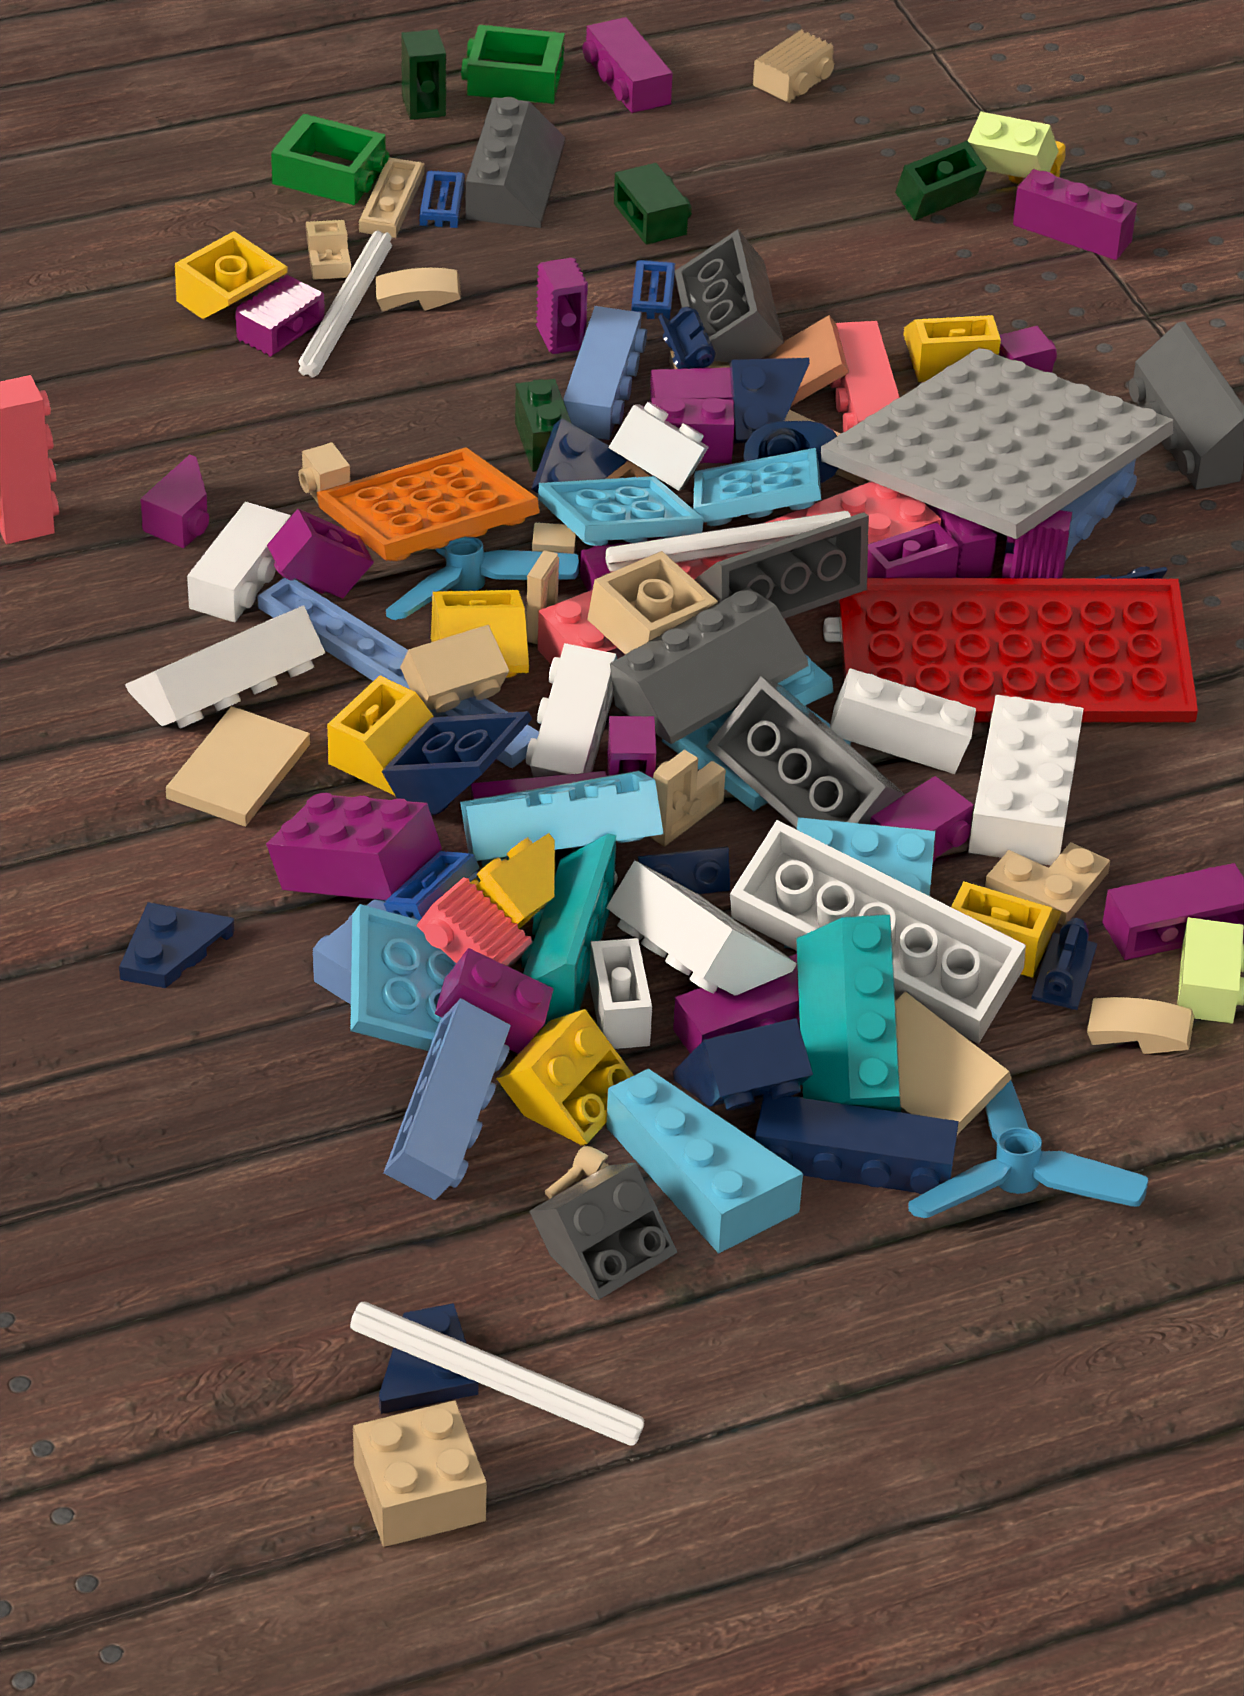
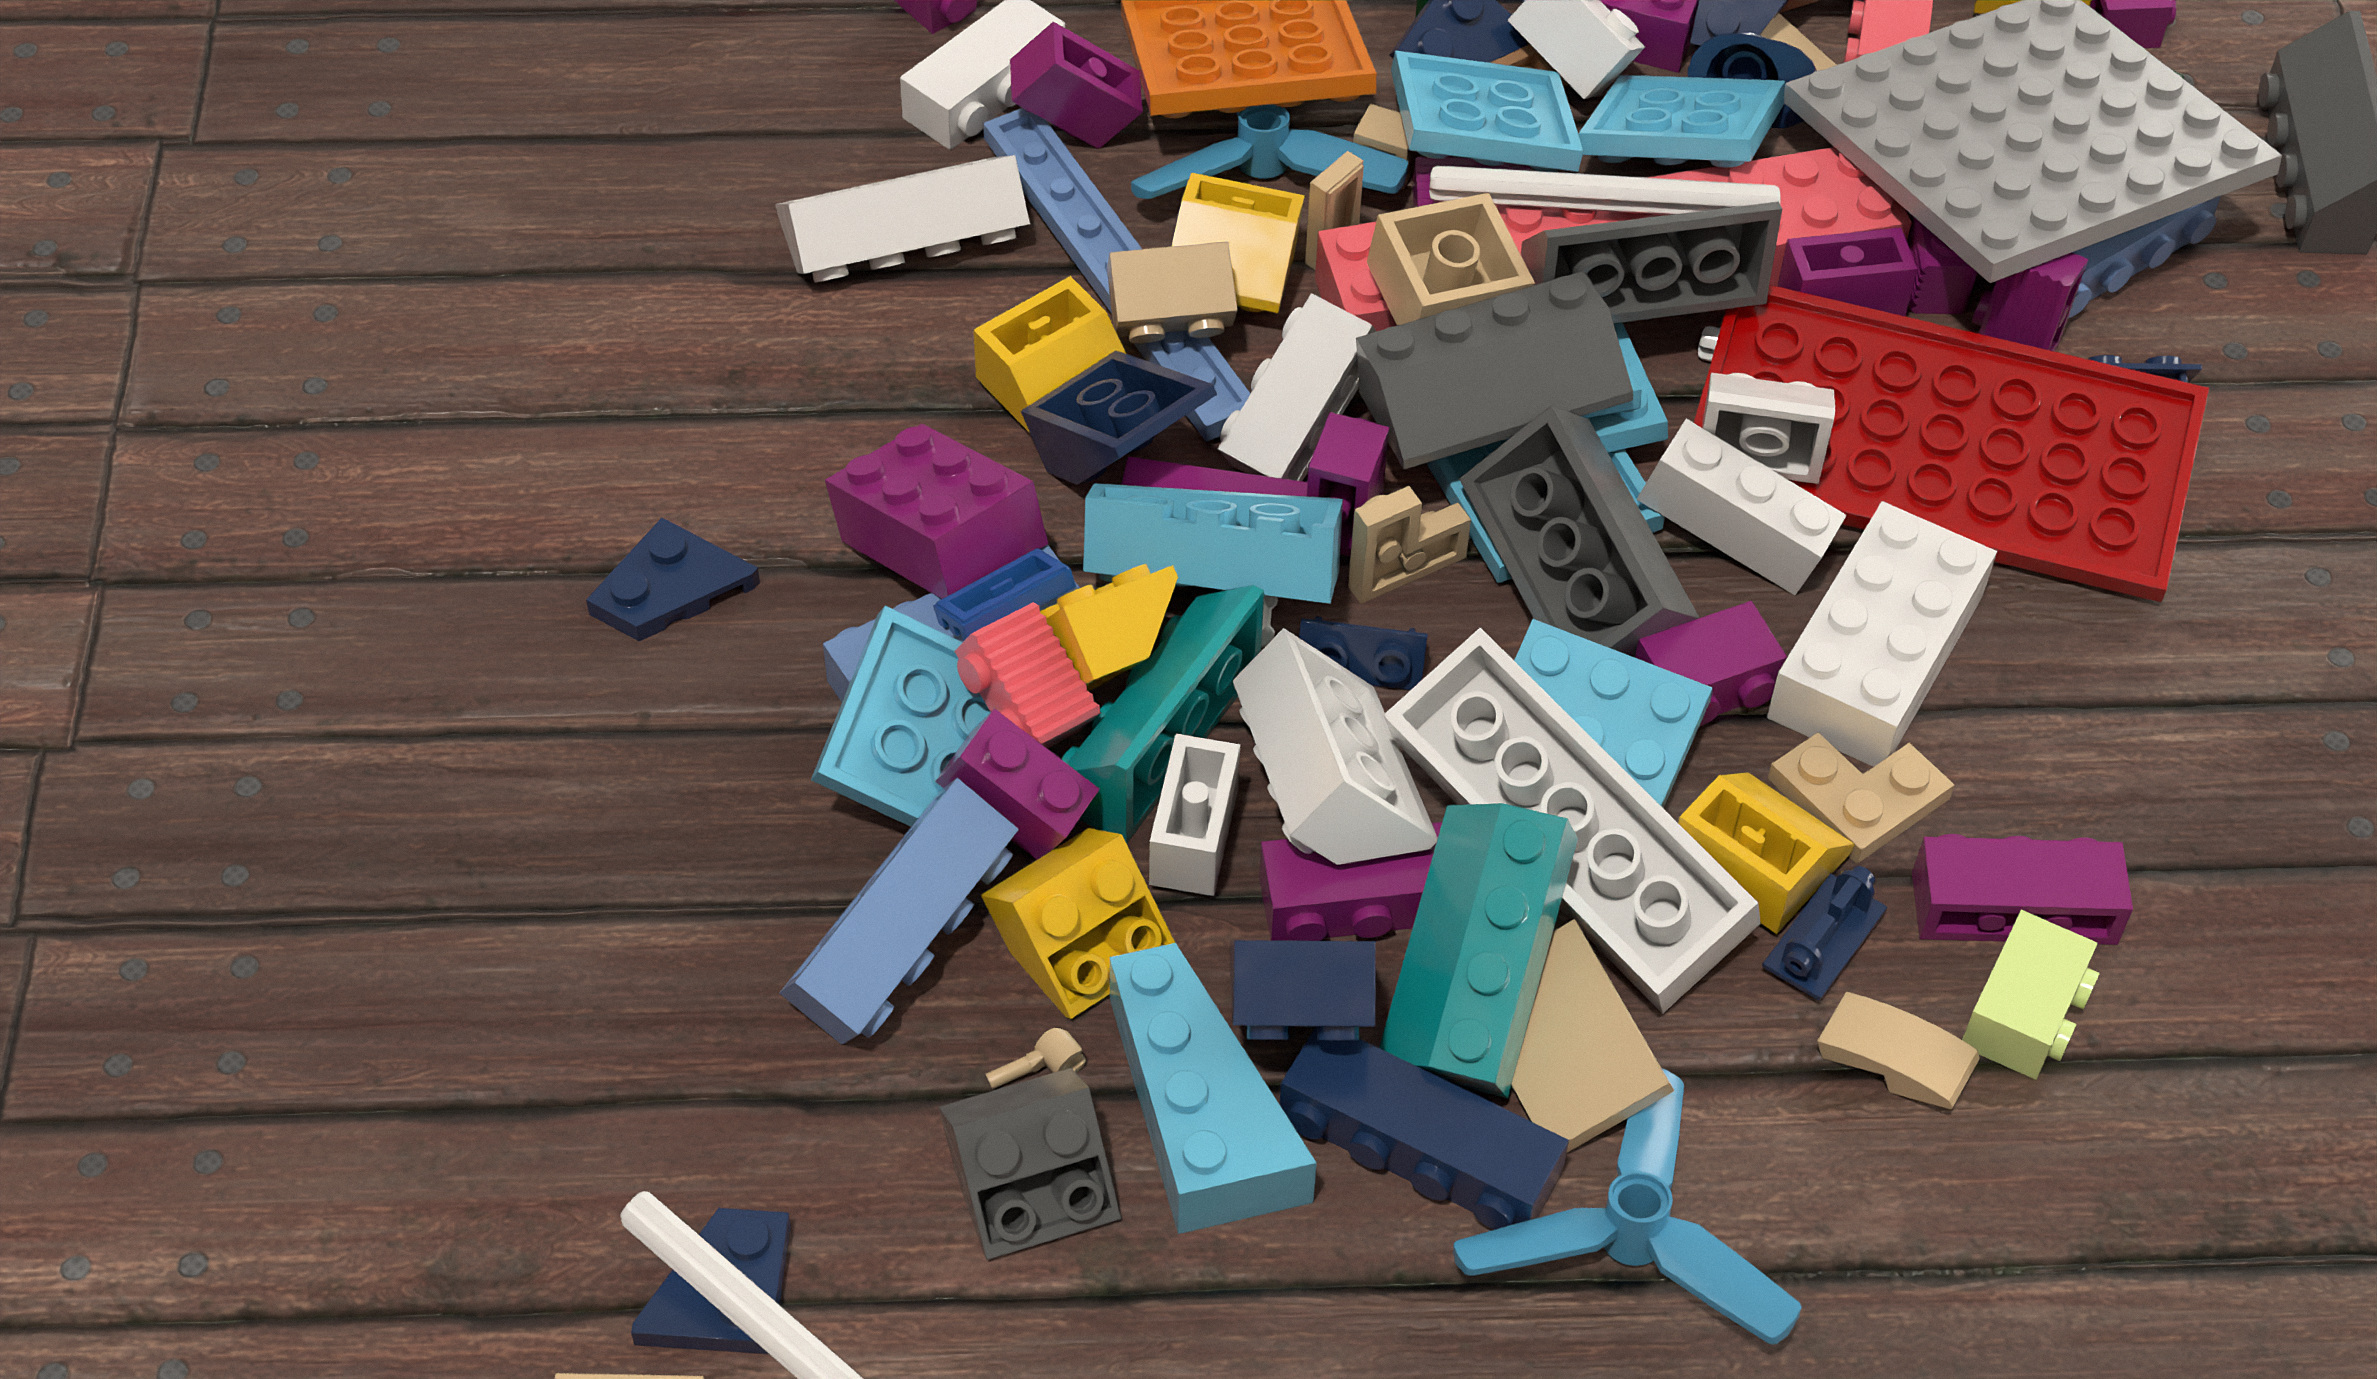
camera: 20 degrees right, 10 degrees up
(238, 766) = (862, 353): tan tile -> none
(906, 658) = (1772, 422): none -> white slope

